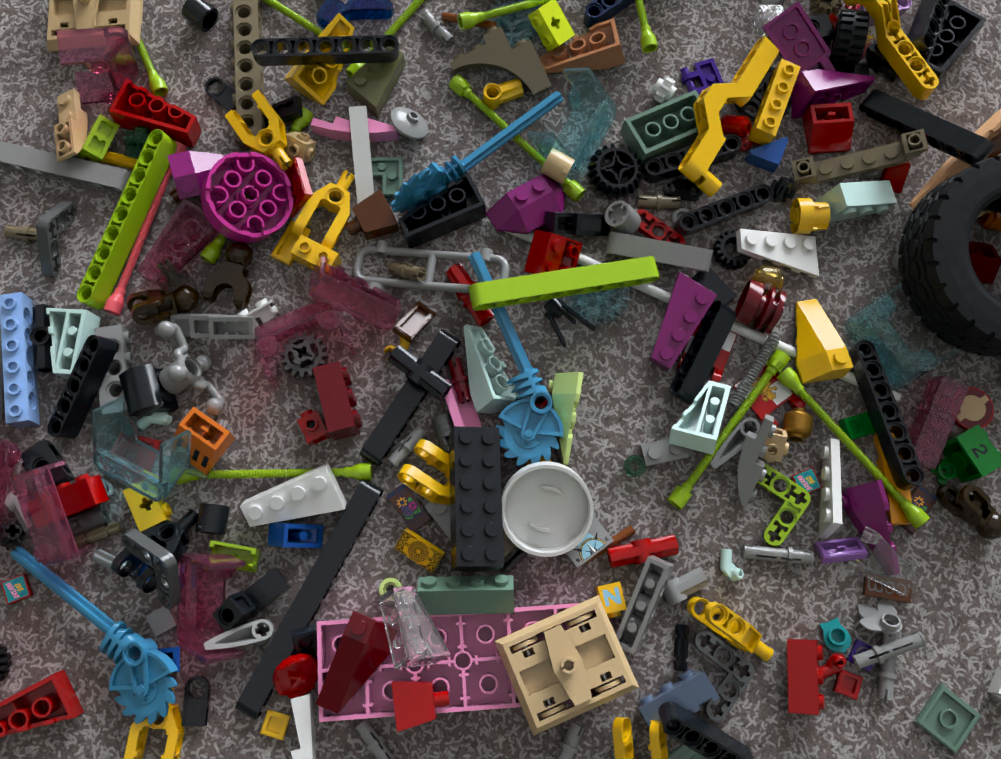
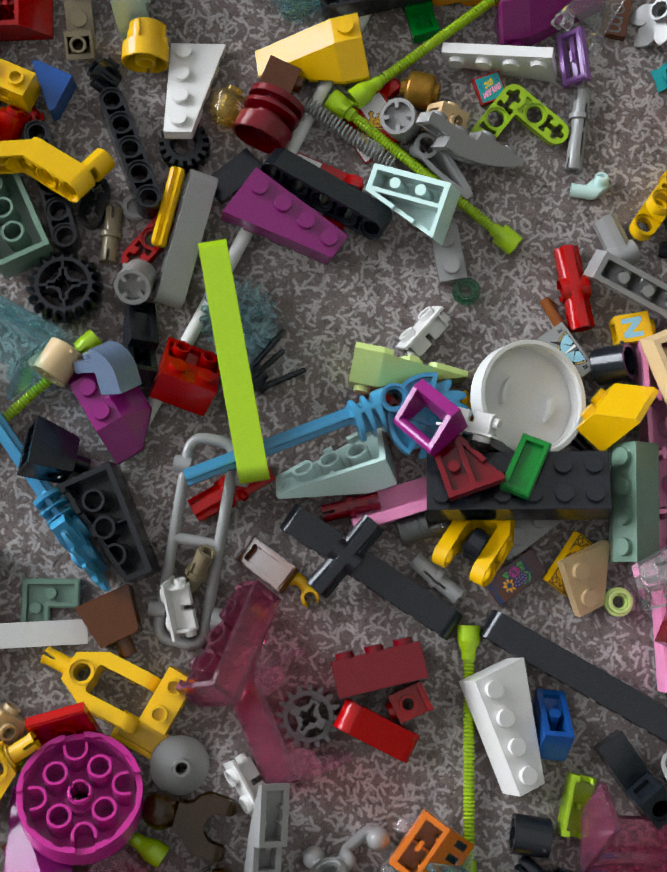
camera: 85 degrees left, 5 degrees up
(279, 273) = (176, 750): none -> light grey dish
(291, 402) = (376, 730): none -> red beam
(386, 256) = (174, 595): none -> white hinge
(408, 561) = (586, 577): none -> tan wing
(432, 469) = (476, 544): none -> black piece
(485, 450) = (465, 469): none -> dark red wing
(488, 499) = (525, 466): none -> green tile
(491, 167) = (50, 453): none -> black torso
(517, 438) = (426, 396): none -> magenta tile
(518, 465) = (482, 427): none -> white hinge
(537, 576) = (615, 413): none -> yellow slope
(553, 199) = (113, 367): none -> sand blue brick
(580, 582) = (614, 364): none -> black piece
(593, 426) = (430, 323): none -> white hinge
(683, 238) = (168, 207): none -> yellow axle
(769, 402) = (399, 119): none -> light grey piece
(794, 315) = (283, 75): none -> reddish brown brick

